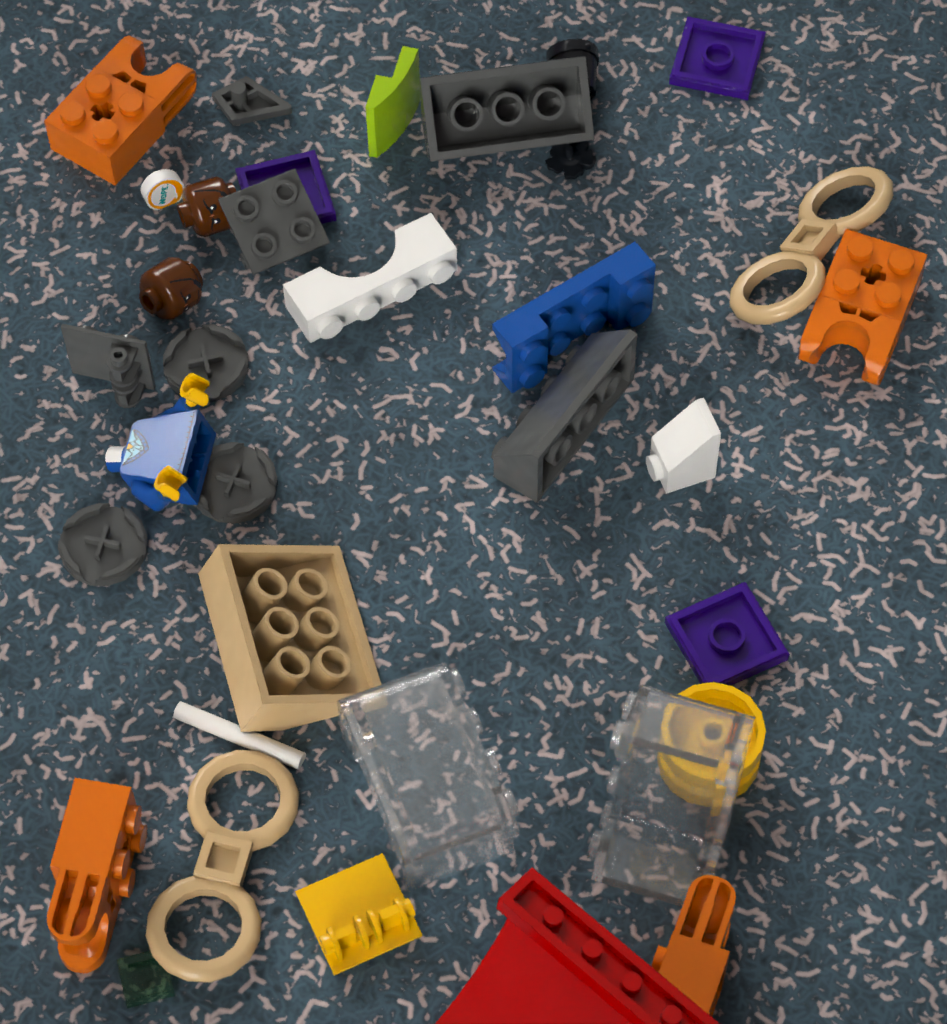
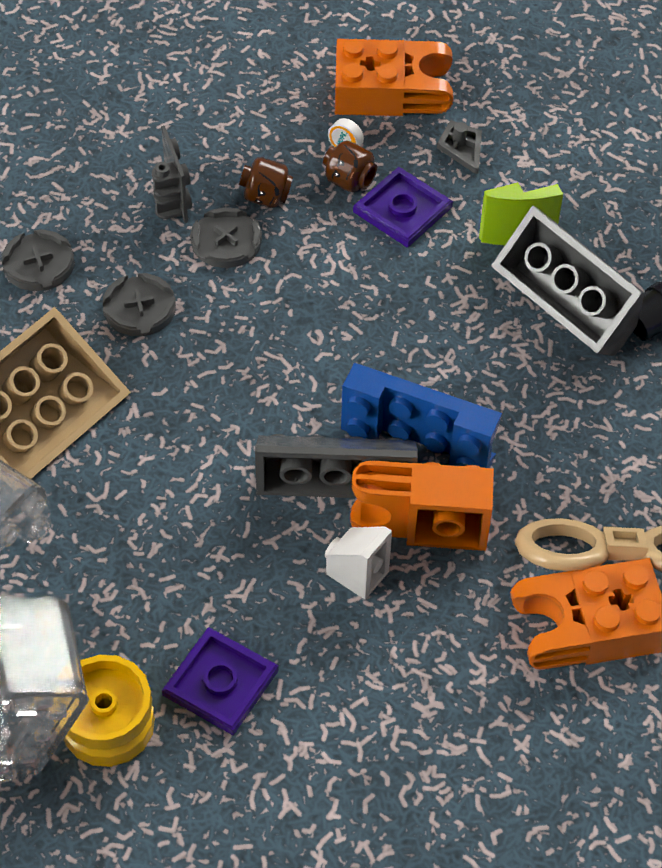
camera: 55 degrees right, 5 degrees down
(168, 452) = (125, 250): blue torso -> none
(273, 222) = (362, 205): dark grey hinge -> none
(328, 302) = (405, 305): white arch -> none
(571, 159) = (579, 356): black plant -> none
(669, 362) = (425, 502): none -> orange brick

